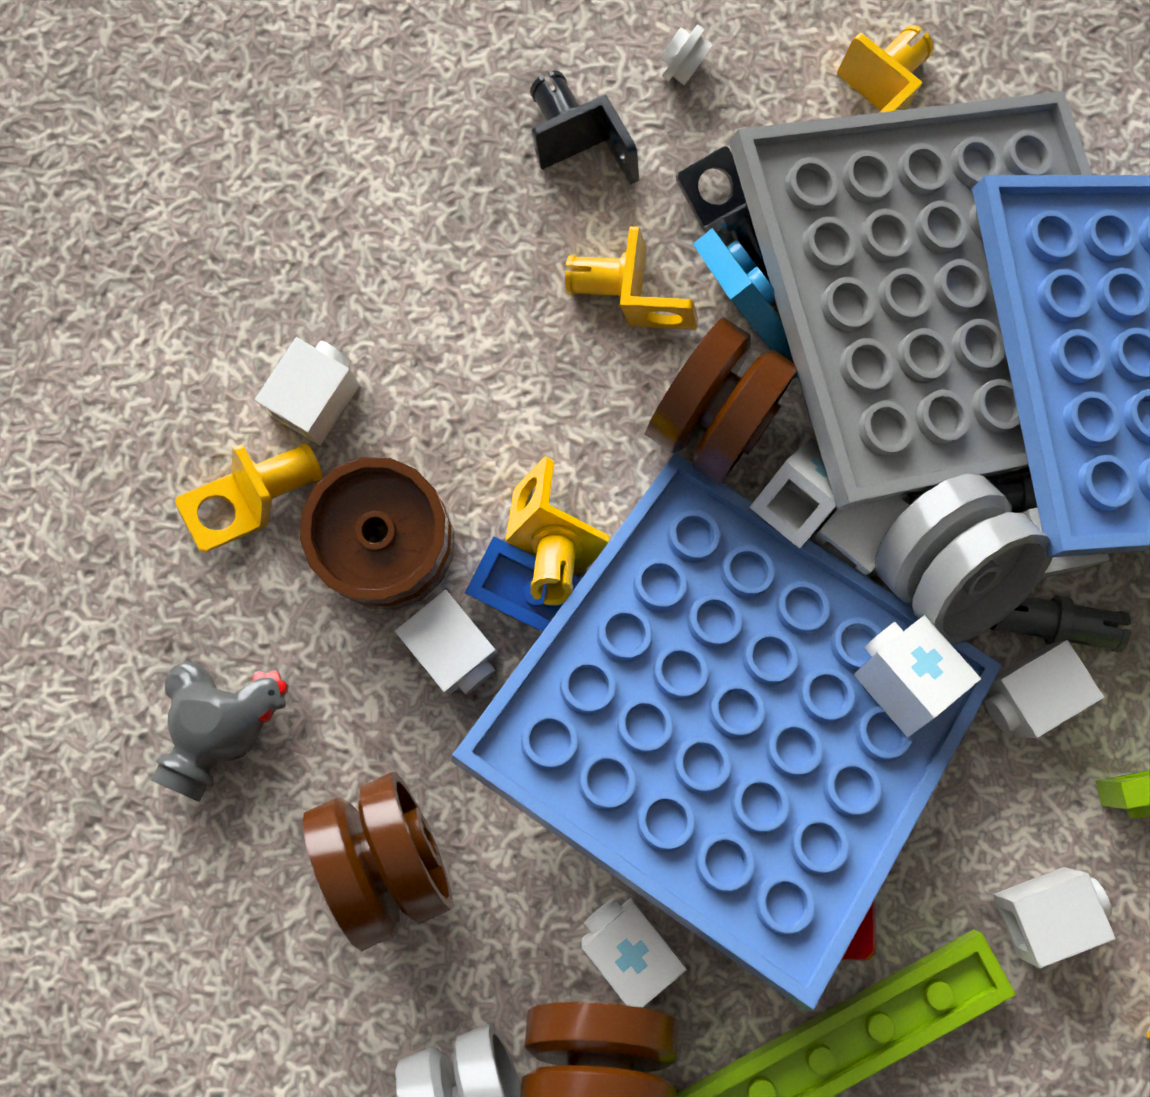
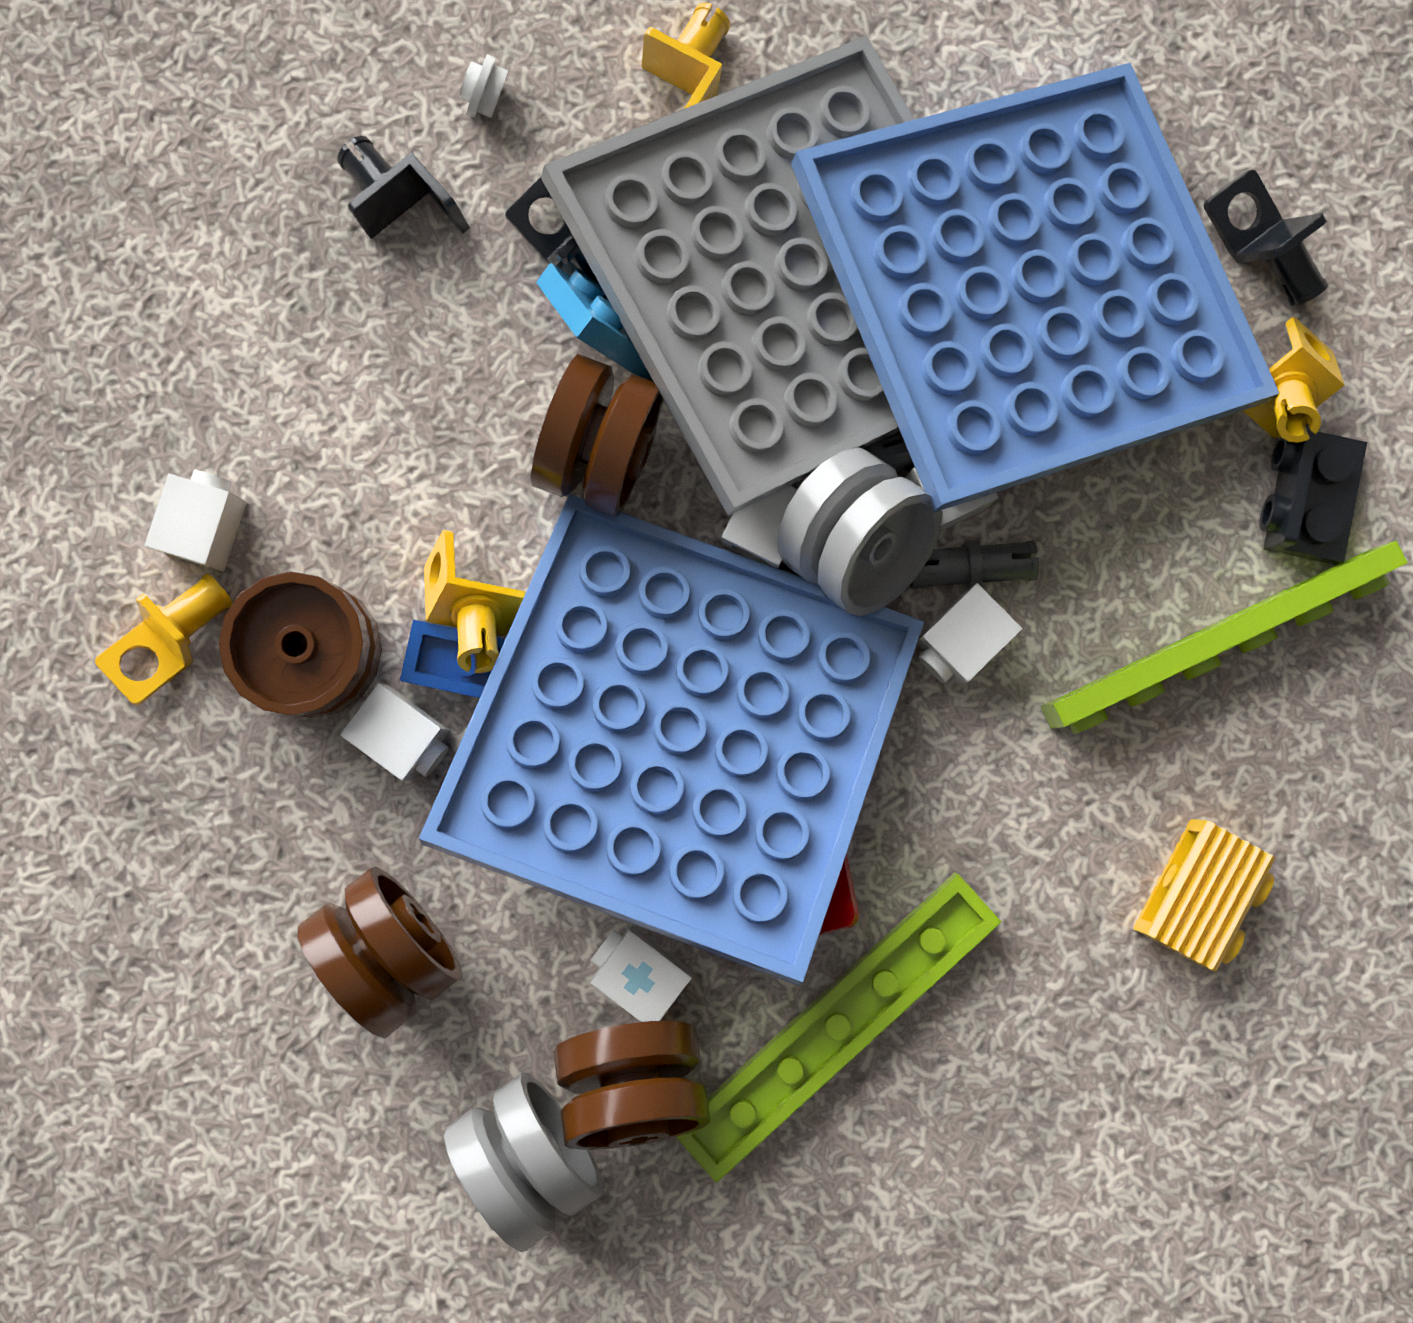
camera: 20 degrees left, 5 degrees up
(212, 724) = (190, 866): dark grey animal -> none
(625, 279) = (481, 333): yellow bracket -> none
(797, 496) = (691, 511): white brick -> none
(914, 674) = (836, 652): white brick -> none
(1055, 916) = (1024, 840): white brick -> none

